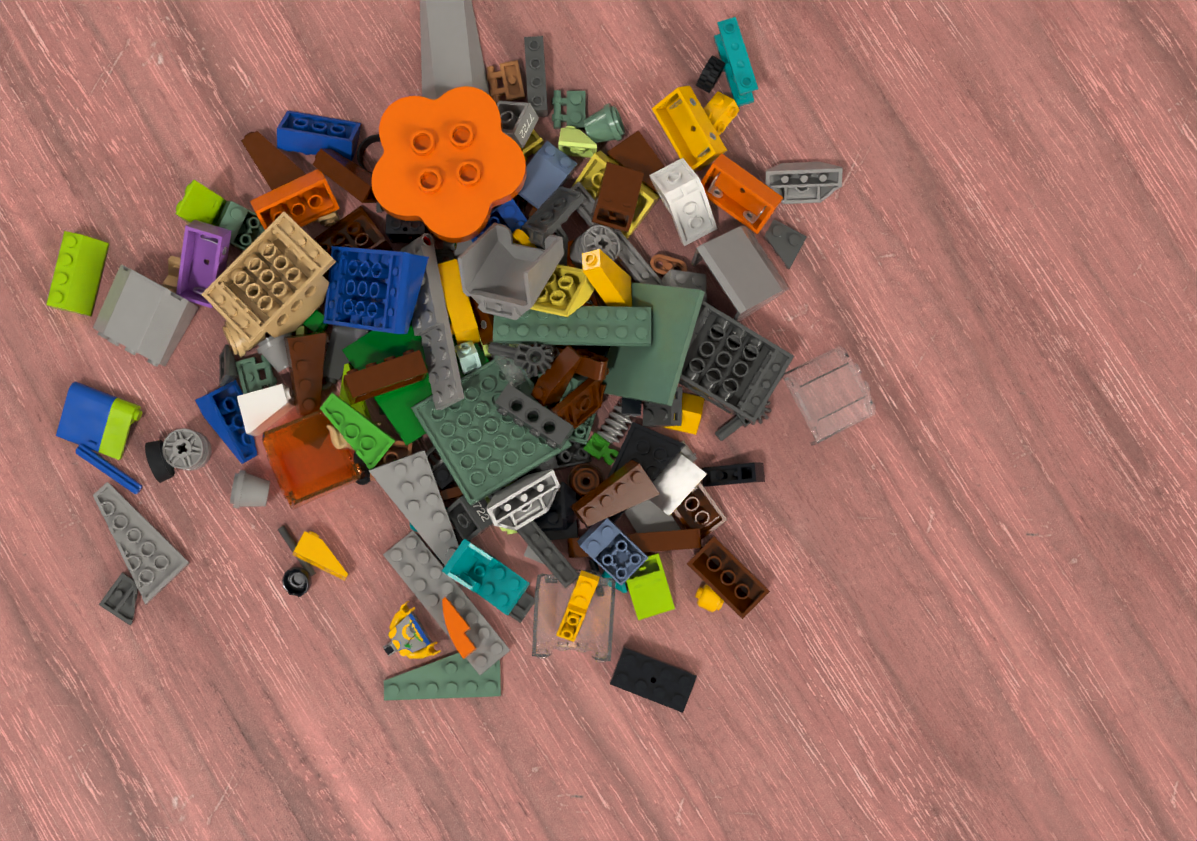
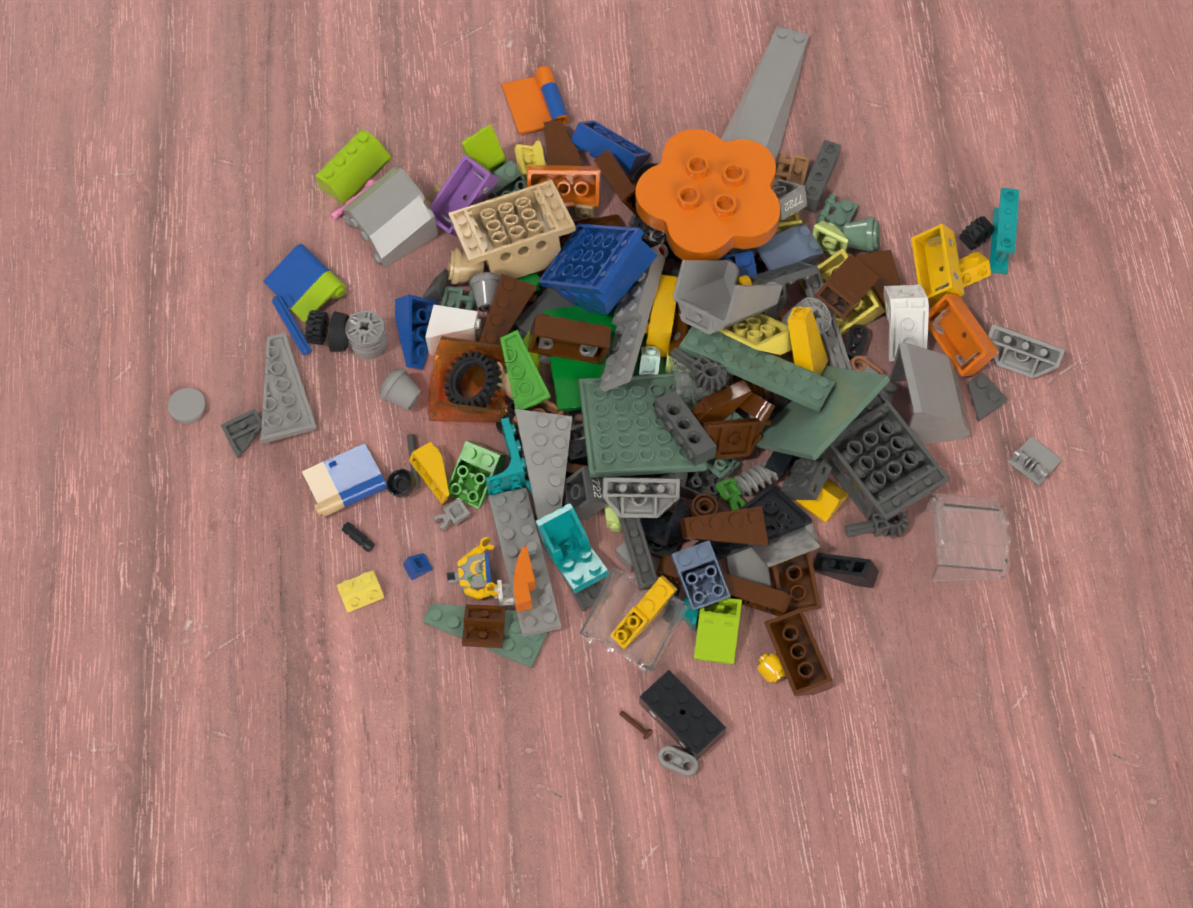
camera: 30 degrees right, 20 degrees down
(54, 597) = (187, 405): none -> light grey tile
(105, 287) = (339, 211): none -> bright pink piece
(135, 464) = (316, 327): none -> black tyre
(219, 116) = (535, 101): none -> orange door
(242, 601) = (344, 480): none -> door
(247, 185) = (529, 155): none -> light yellow bracket
(284, 649) = (358, 537): none -> black axle
(313, 699) = (360, 591): none -> light yellow bracket
(330, 447) = (456, 374): none -> black tyre
(352, 650) = (417, 566): none -> blue slope
(359, 537) = (471, 470): none -> bright green slope
(361, 586) = (454, 513): none -> light grey plate
(398, 525) = (514, 476): none -> teal bracket
(441, 682) = (483, 626): none -> reddish brown slope
(444, 643) = (504, 594): none -> white bracket
(615, 703) = (646, 733): none -> reddish brown pin
(647, 241) = (855, 343): none -> black plate
(667, 722) = (678, 760): none -> light grey plate
(855, 287) = (1034, 461): none -> light grey hinge

